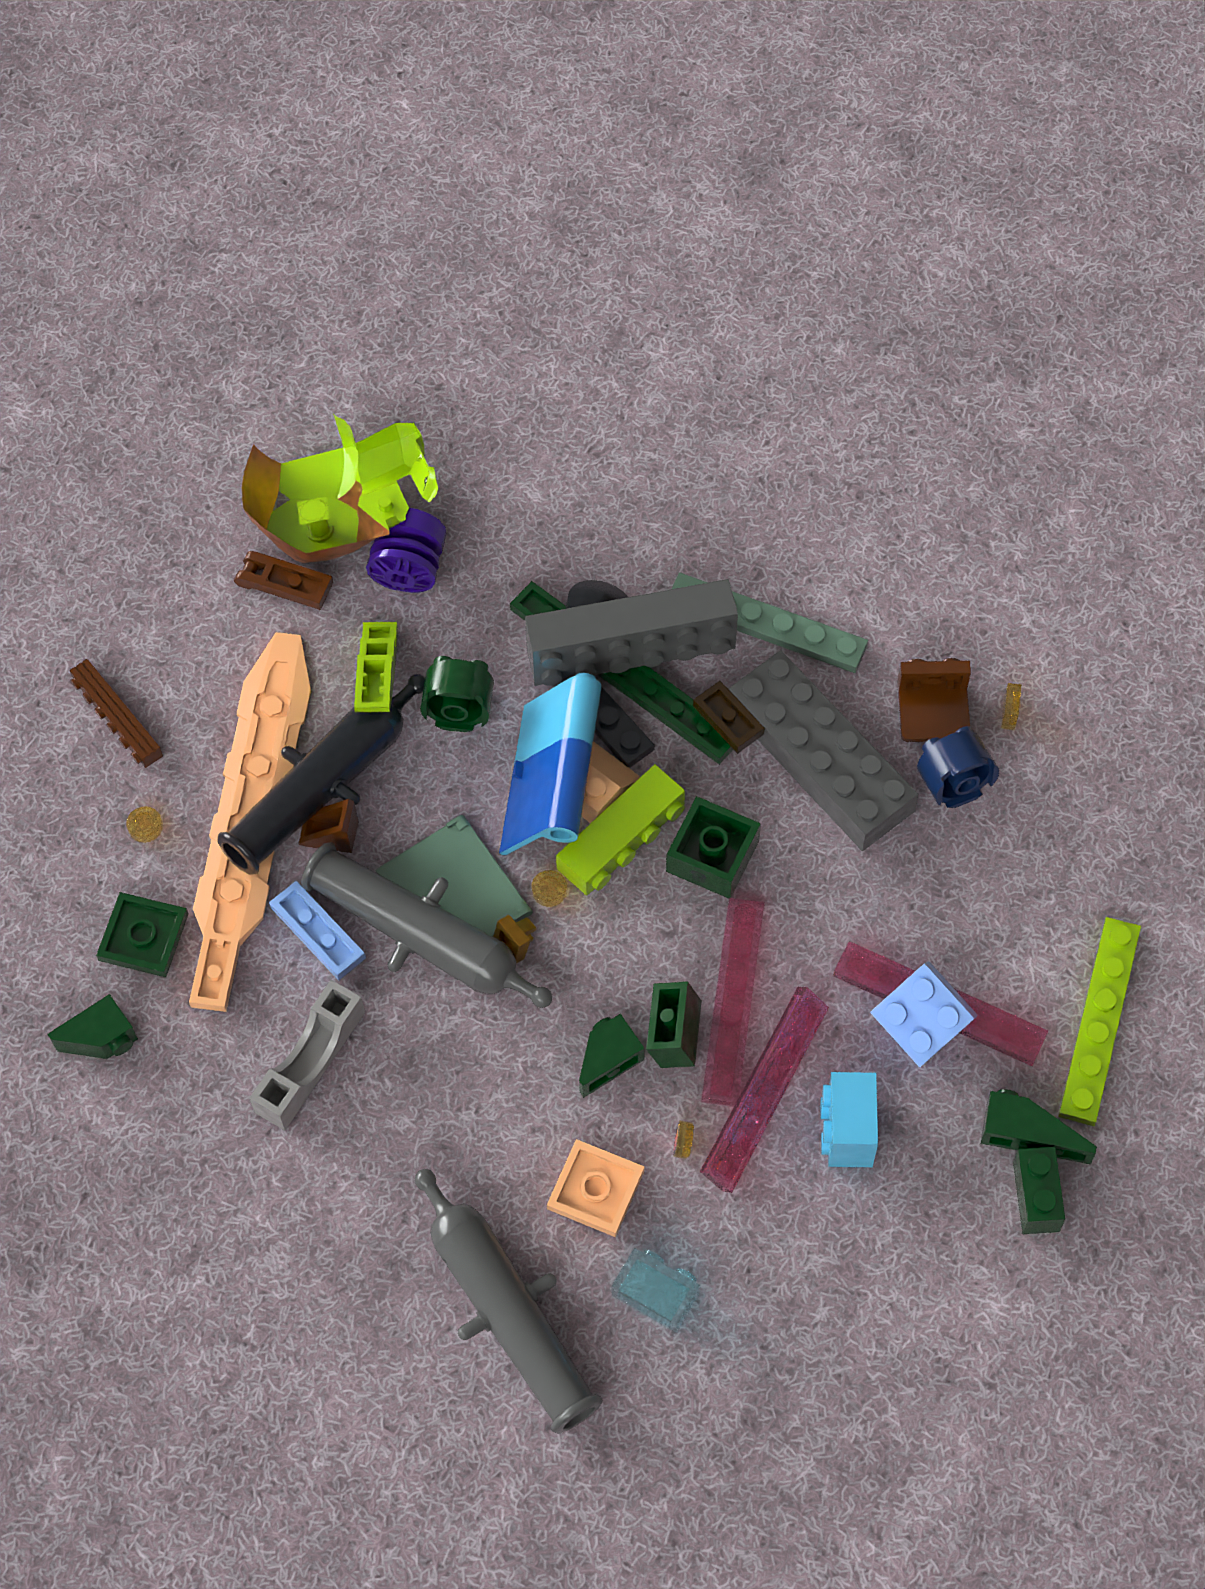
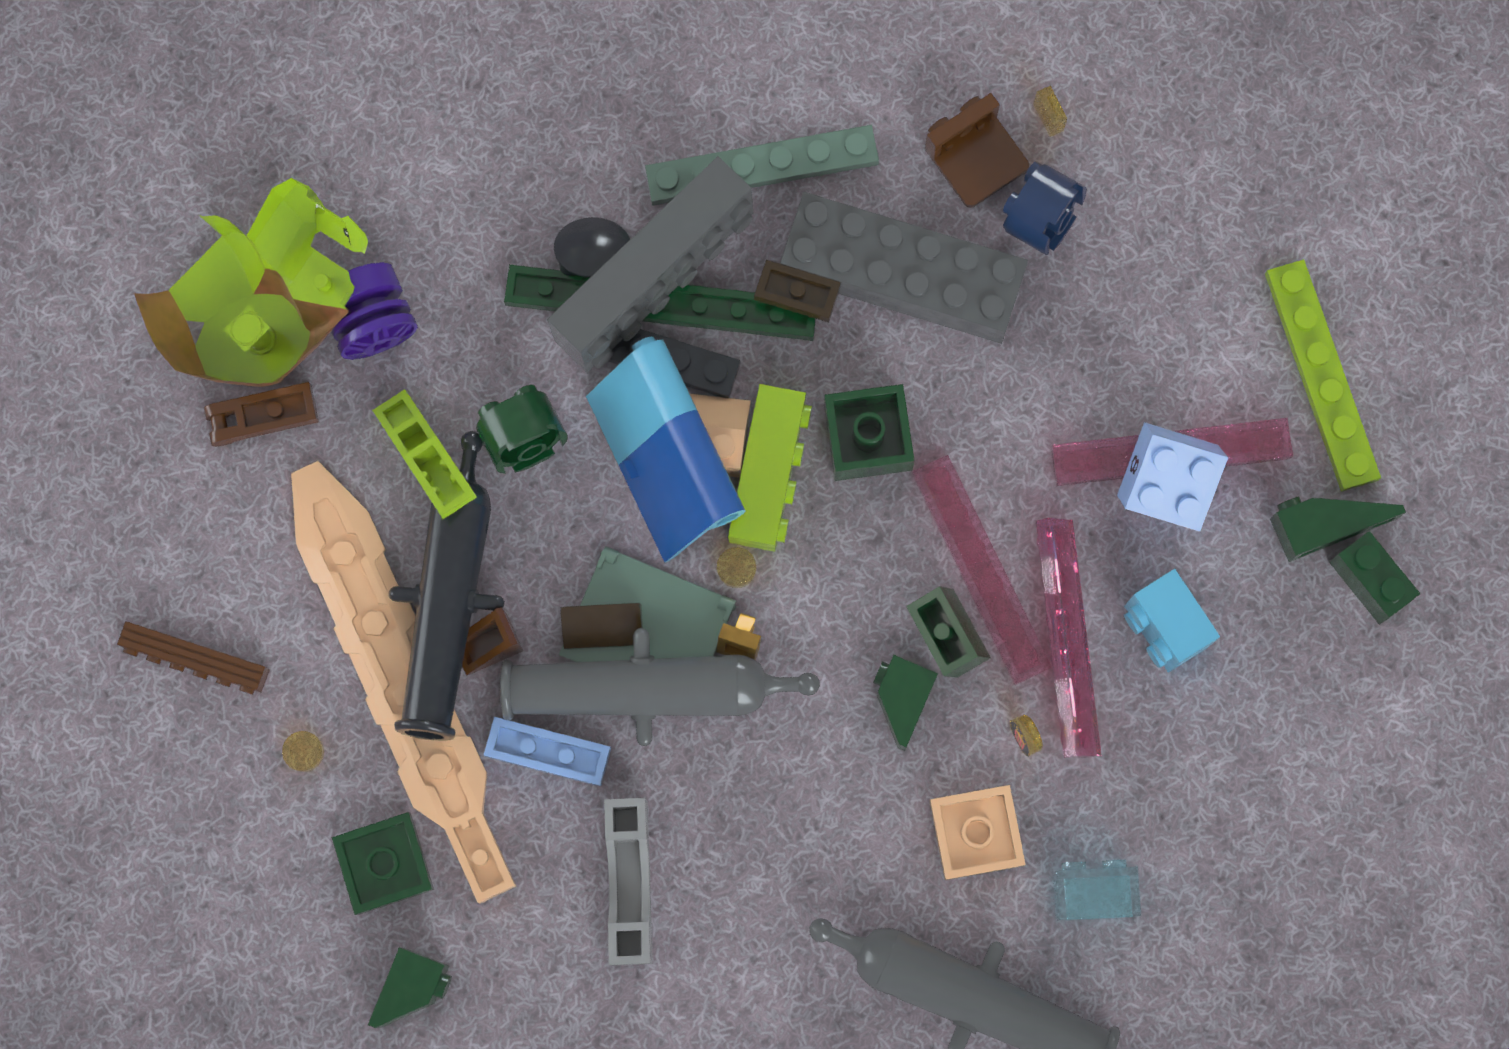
camera: 30 degrees left, 15 degrees up
(418, 863) = (600, 625): none -> dark brown slope

